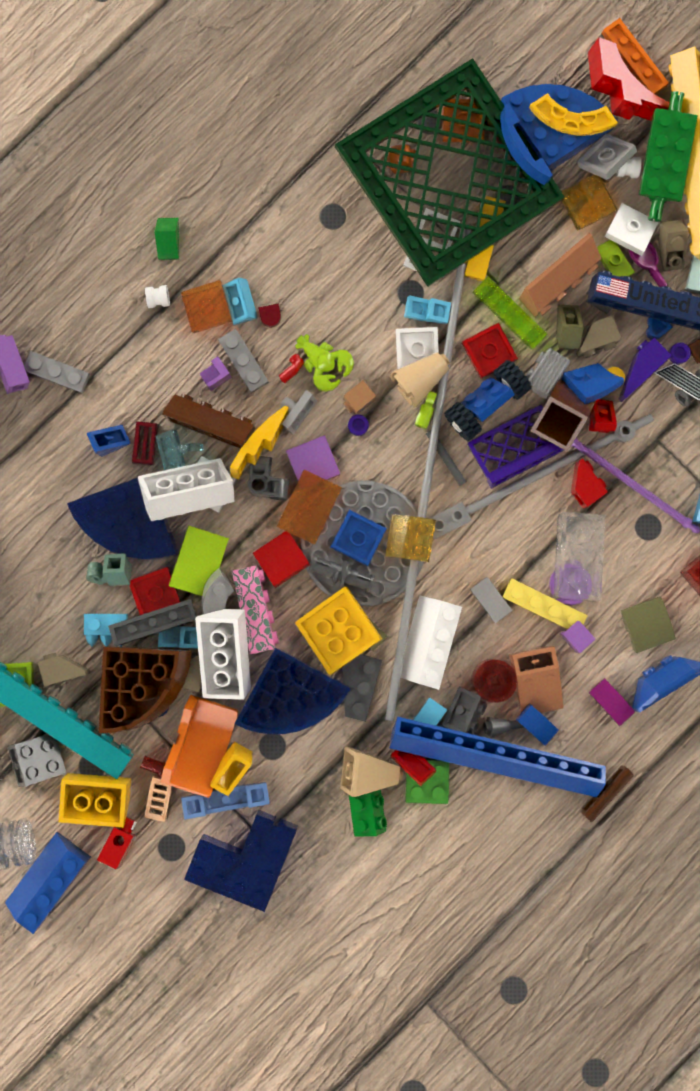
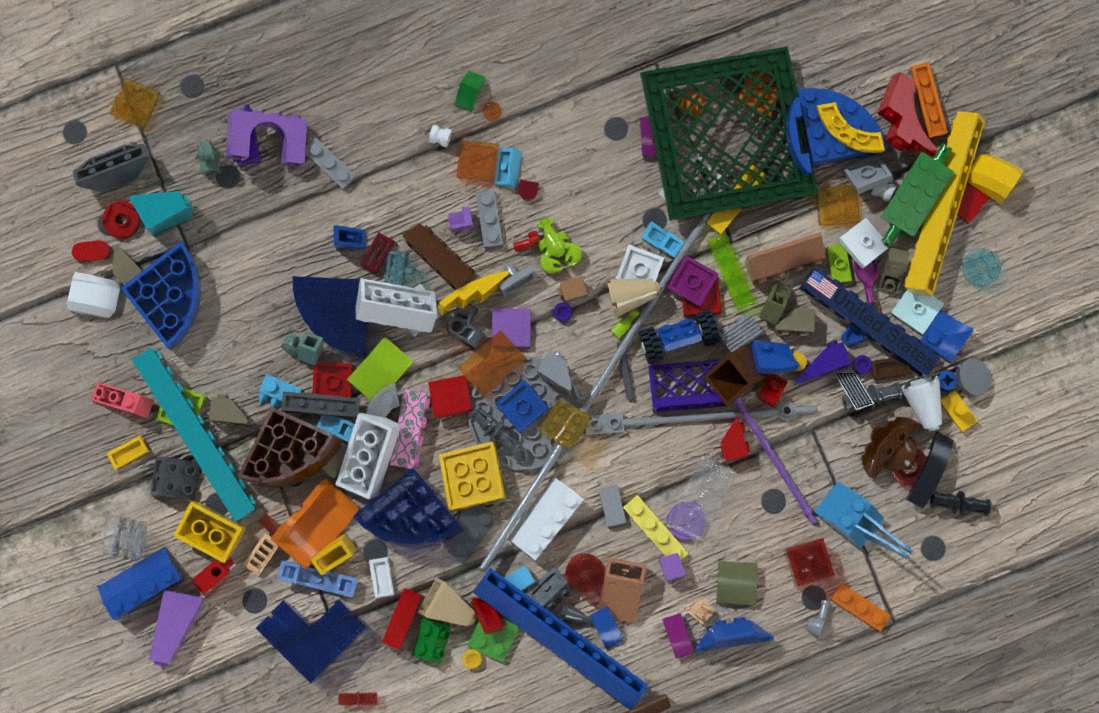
camera: 30 degrees right, 5 degrees down
(98, 909) = (173, 624): none -> medium lavender slope
(199, 250) = (492, 111): none -> clear orange piece
(290, 770) = (381, 577): none -> white tile
(318, 903) = (357, 698): none -> clear red axle
(328, 804) = (402, 619): none -> red slope
(370, 214) = (646, 138): none -> magenta slope
(380, 489) = (555, 372): none -> light grey slope
(415, 813) = (472, 659): none -> yellow tile
(476, 339) = (692, 281): none -> magenta tile
(624, 667) = (701, 611): none -> light nougat tile

